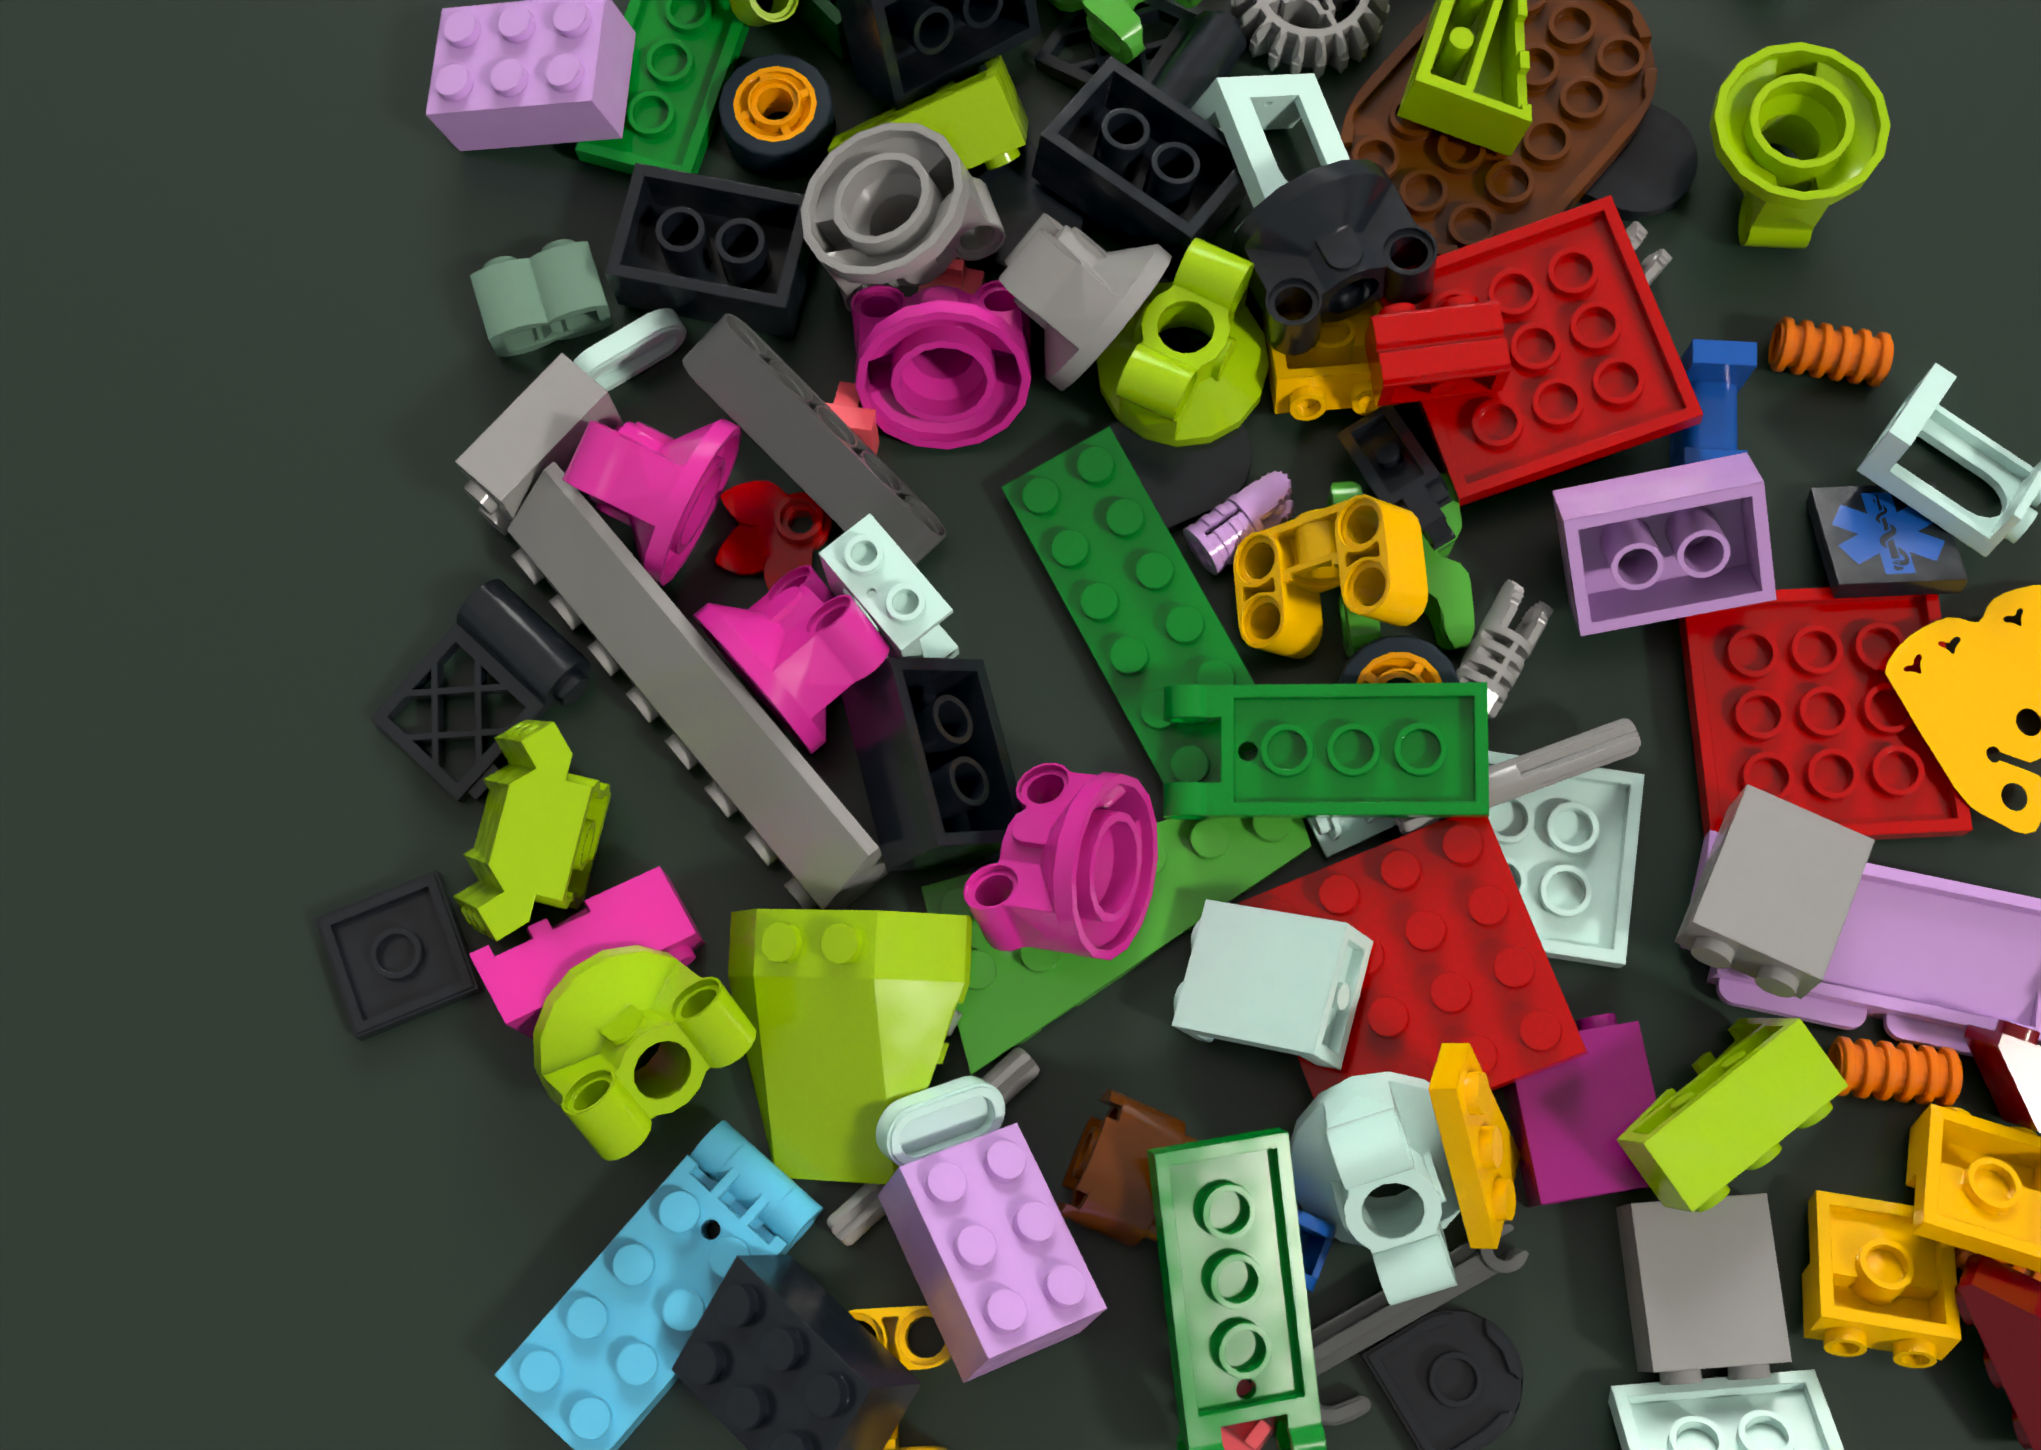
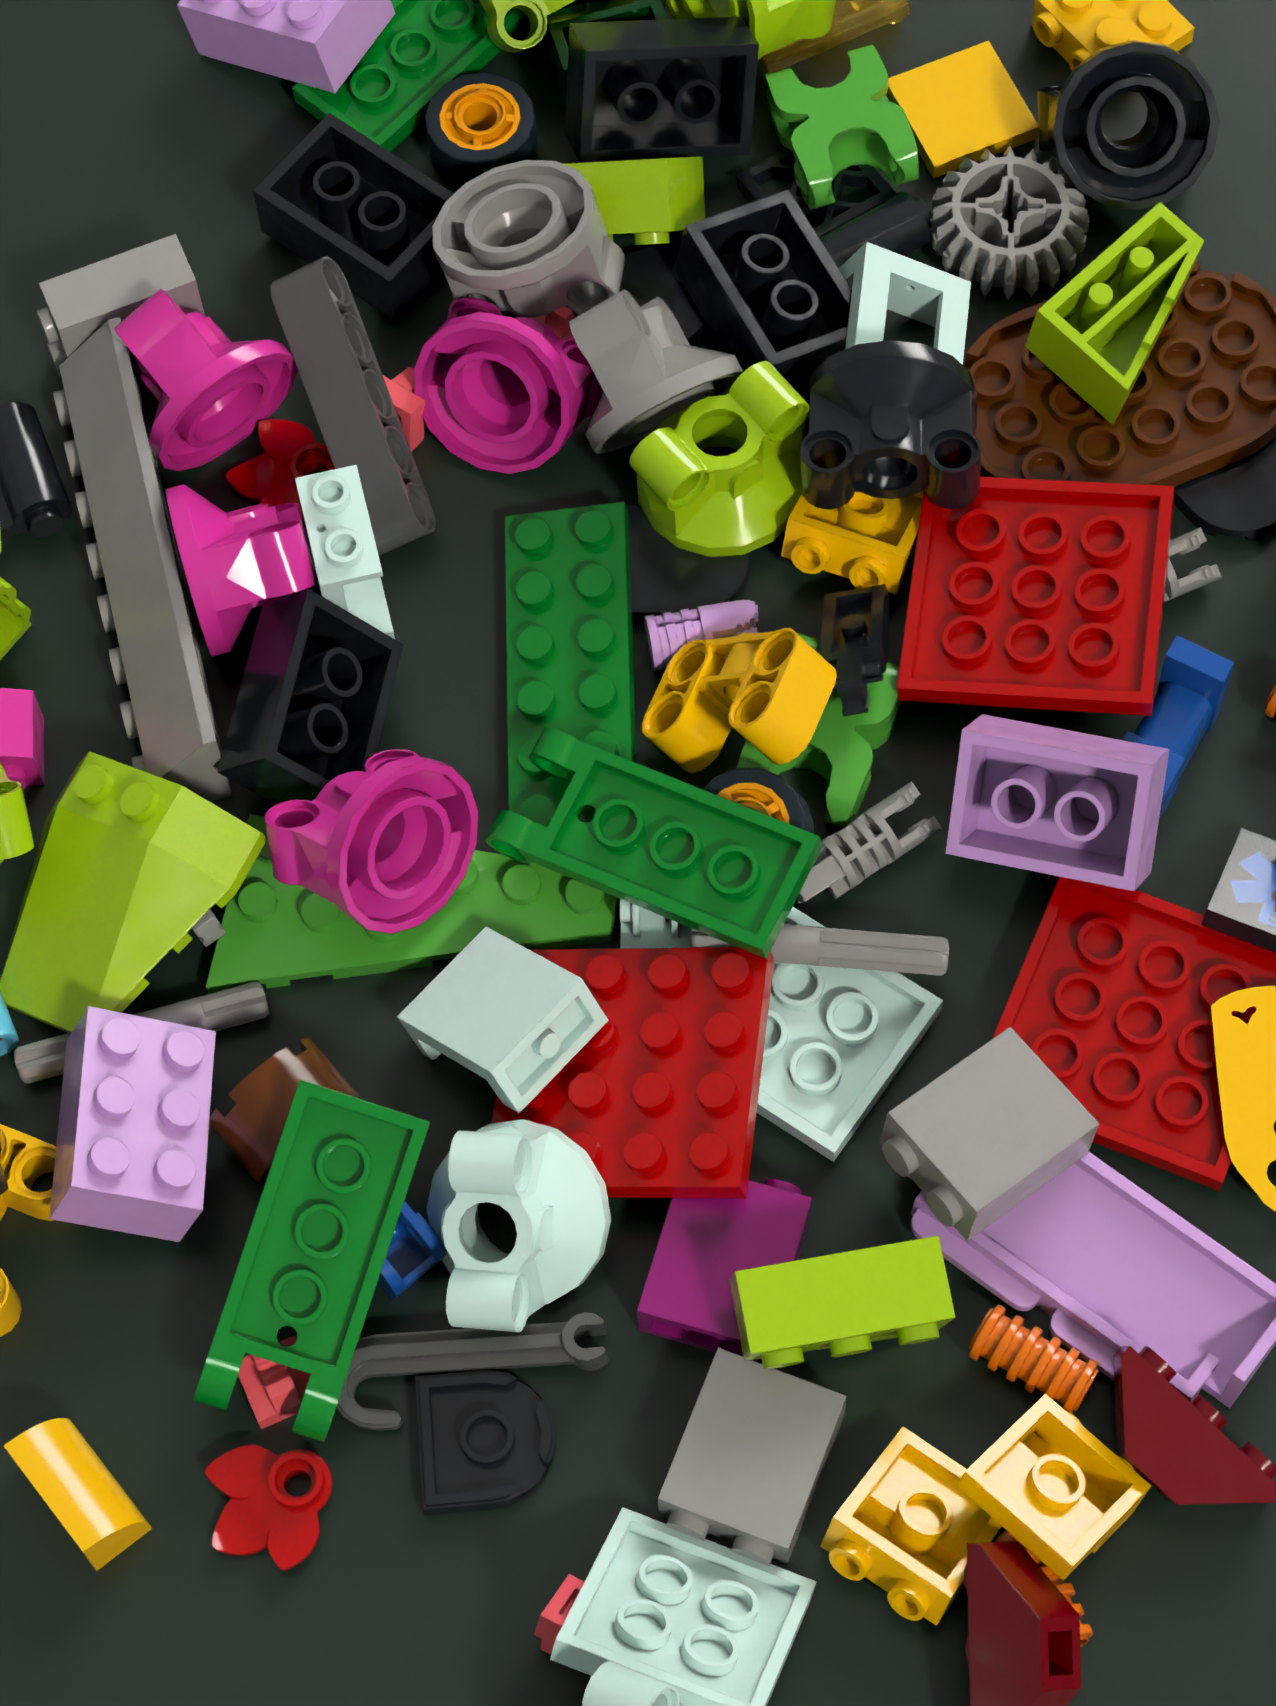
camera: 25 degrees right, 10 degrees down
(541, 298) = (196, 197): sand green brick -> none
(633, 348) = (243, 269): light aqua tile -> none
(939, 1119) = (151, 993): light aqua tile -> none
(1436, 351) = (935, 548): red brick -> none
(1475, 1143) = (596, 1215): yellow wing -> none

